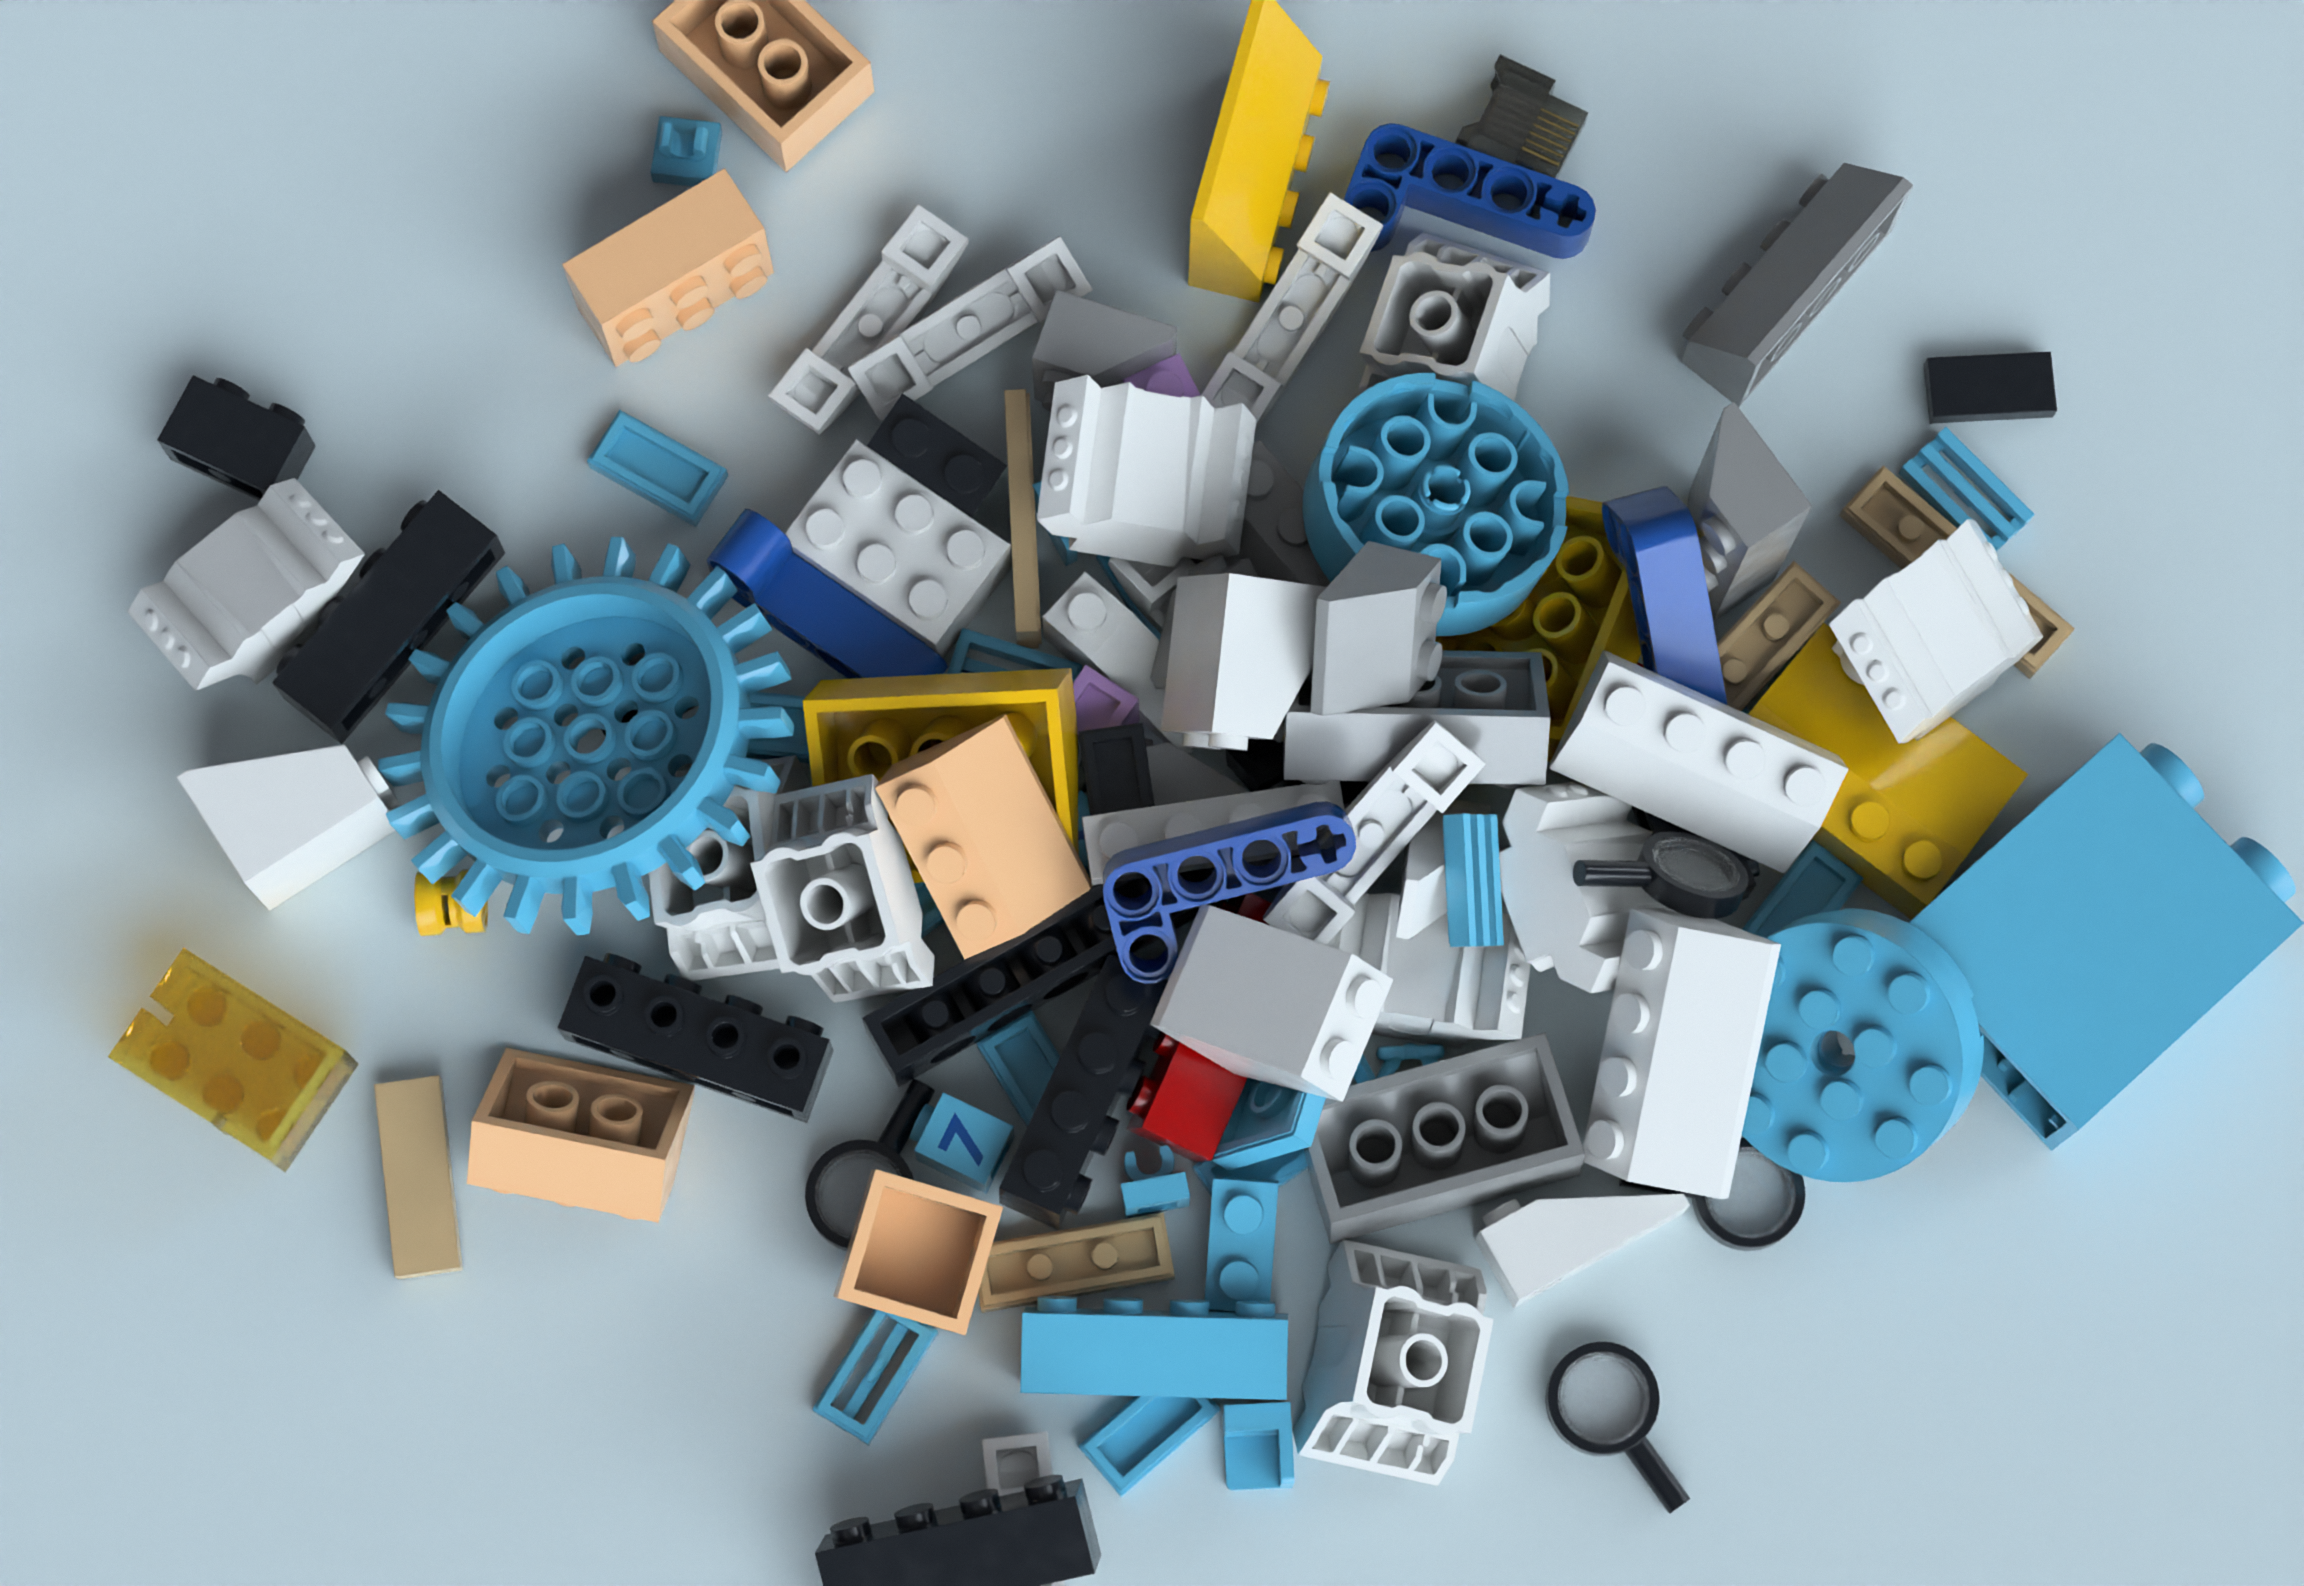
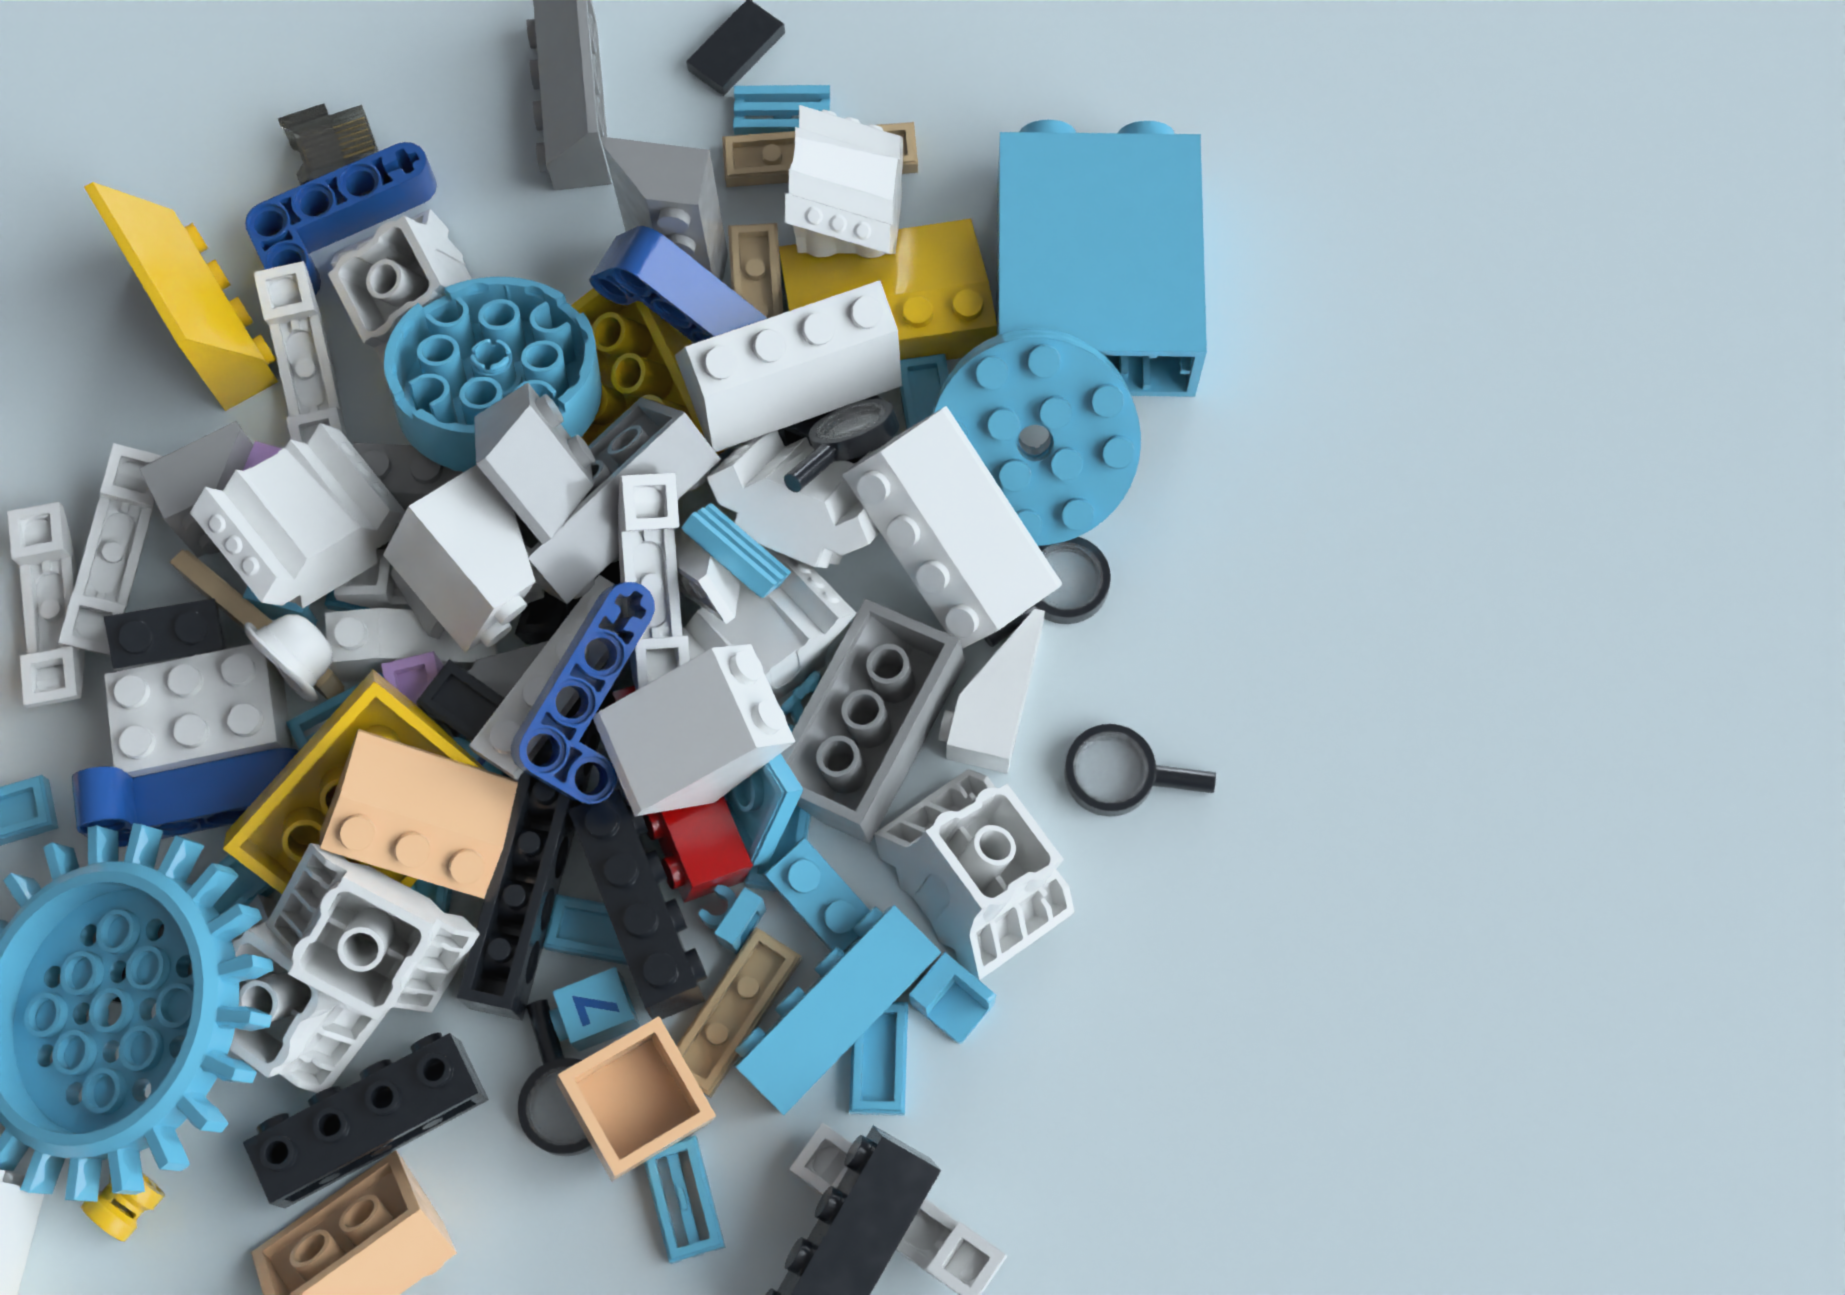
camera: 45 degrees left, 5 degrees down
(1025, 583) = (295, 650): none -> white hat

